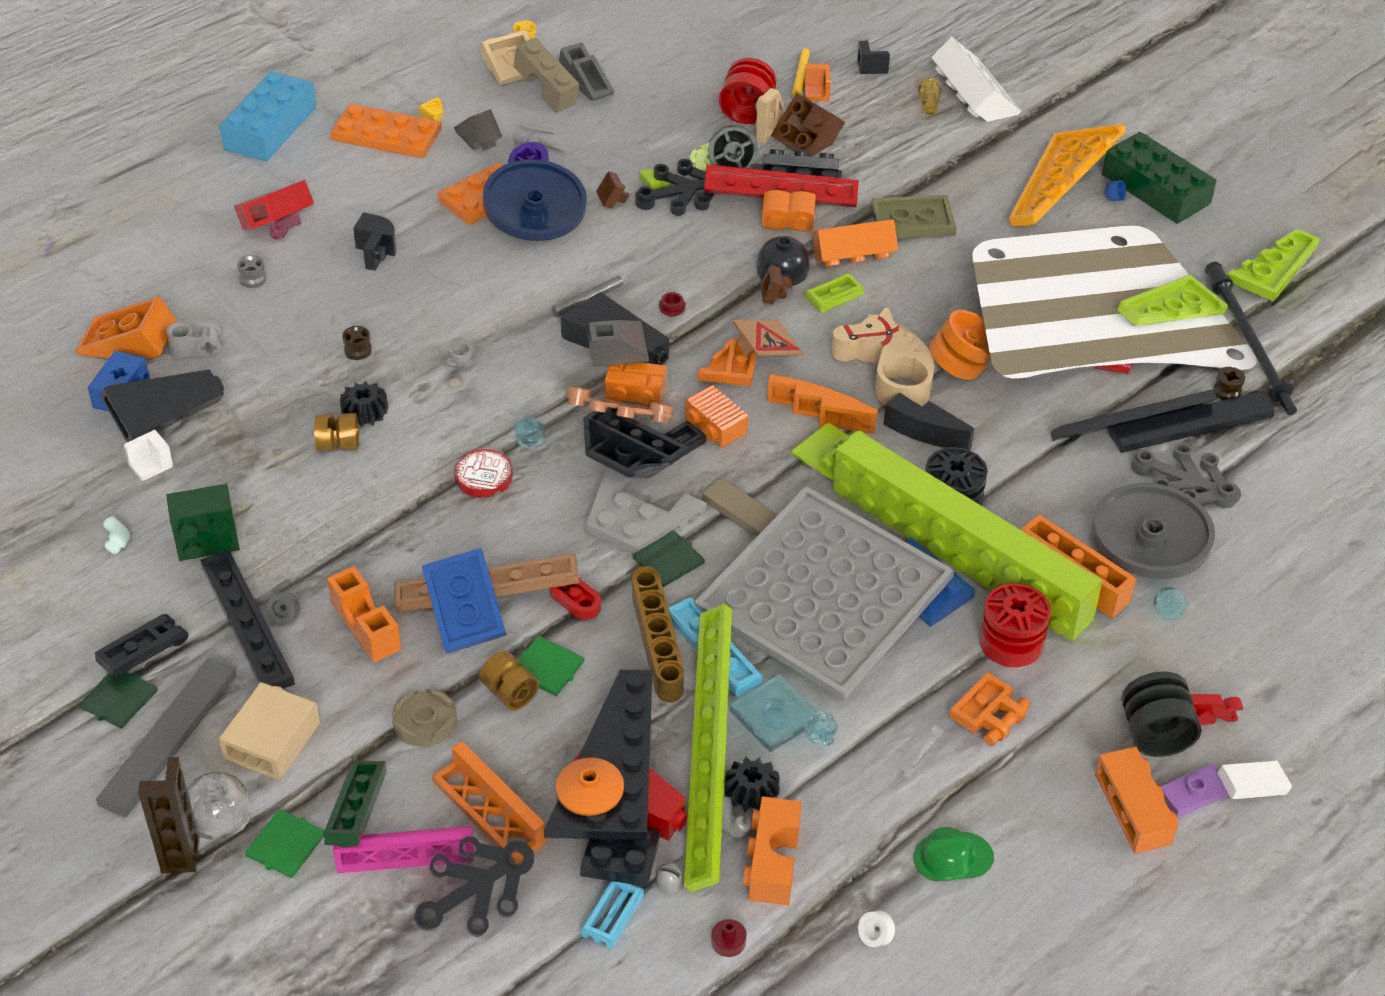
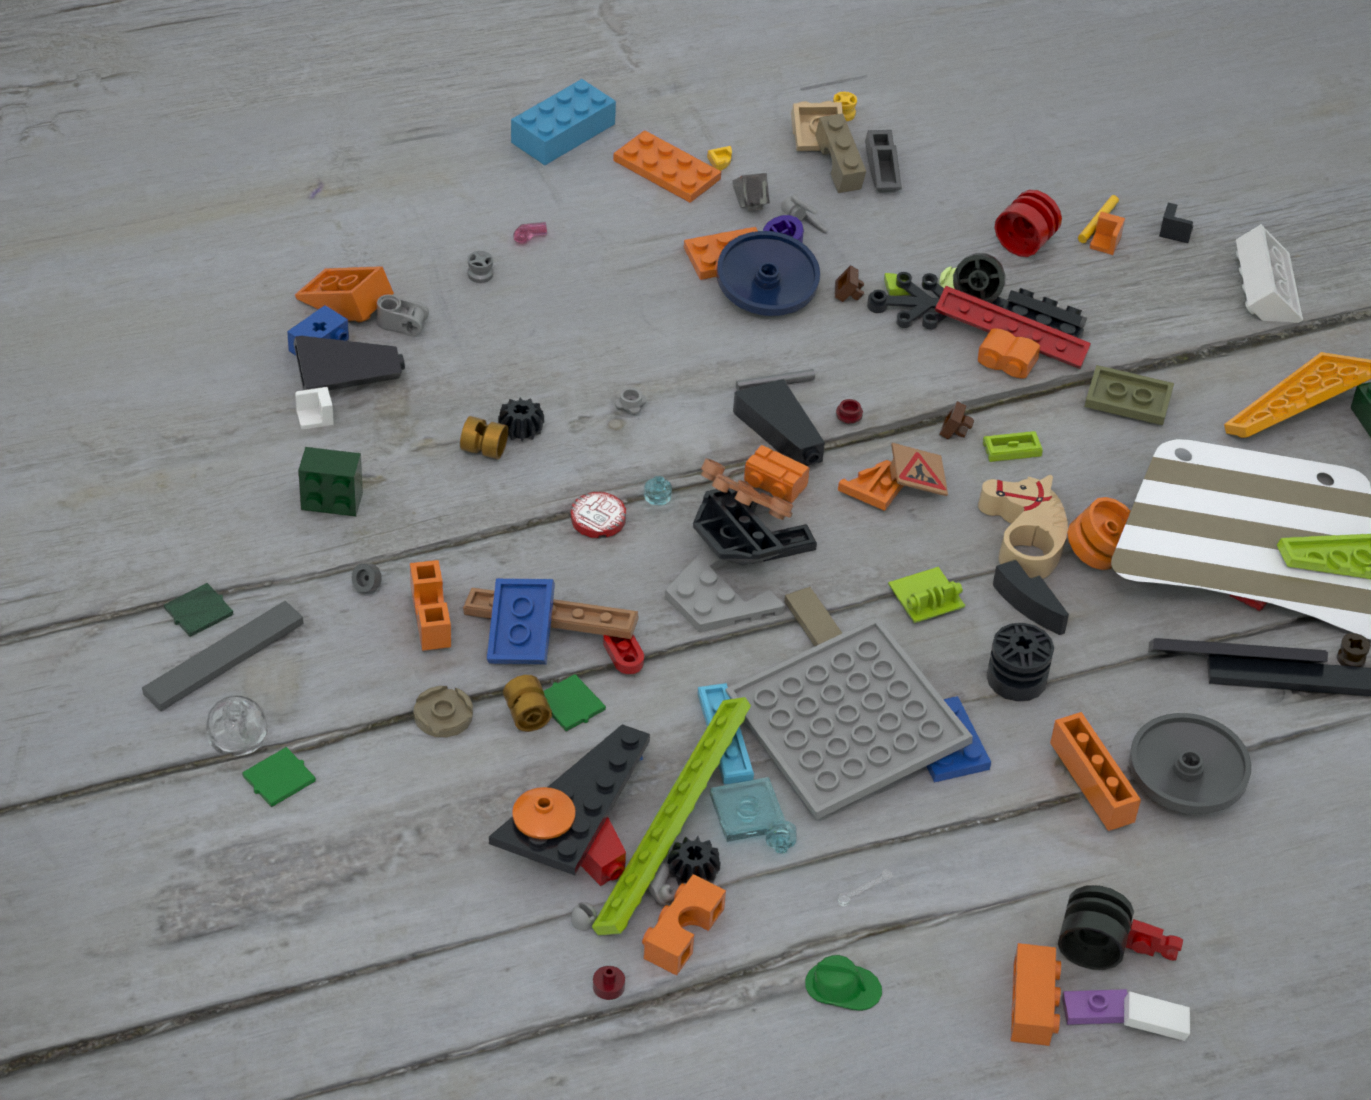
camera: 20 degrees right, 0 degrees up
(118, 536) = (258, 471): light aqua arm -> none
(140, 645) = (234, 571): black plate -> none
(171, 820) = (186, 722): dark brown fence -> none
(246, 620) = (331, 580): black plate -> none
(269, 730) = (307, 678): tan brick -> none
(273, 205) = (529, 209): red slope -> none
(355, 803) = (345, 761): dark green plate -> none
(357, 343) = (542, 361): dark brown wheel -> none
(376, 238) = (603, 268): black brick -> none
(403, 849) = (371, 814): dark pink fence -> none
(479, 882) = (419, 862): black plant -> none
(497, 794) = (470, 796): orange fence -> none
(601, 934) = (525, 930): medium azure tile -> none
(616, 342) = (770, 431): dark grey slope -> none
(621, 859) = (550, 886): black plate -> none
(658, 634) = (678, 706): pearl gold beam -> none
(670, 557) = (726, 644): clear green piece -> none
(716, 416) = (834, 528): orange brick -> none
(769, 113) = (1038, 254): tan wing -> none
(784, 253) = (982, 400): black cylinder -> none
(807, 126) = (1072, 276): reddish brown slope -> none
(821, 402) = (939, 545): orange slope -> none
(855, 242) = (1054, 403): orange brick -> none
(876, 928) = (738, 1019): white tile -> none
(929, 93) = (1215, 276): clear yellow cone -> none
(963, 531) = (1005, 711): lime brick -> none
(980, 704) = (942, 863): orange plate -> none
(1014, 625) = (1005, 804): red wheel -> none
(1115, 190) = (1352, 428): blue hinge -> none
(1170, 603) = (1166, 840): clear light blue tile -> none
(1218, 490) = (1284, 750): dark grey plant -> none

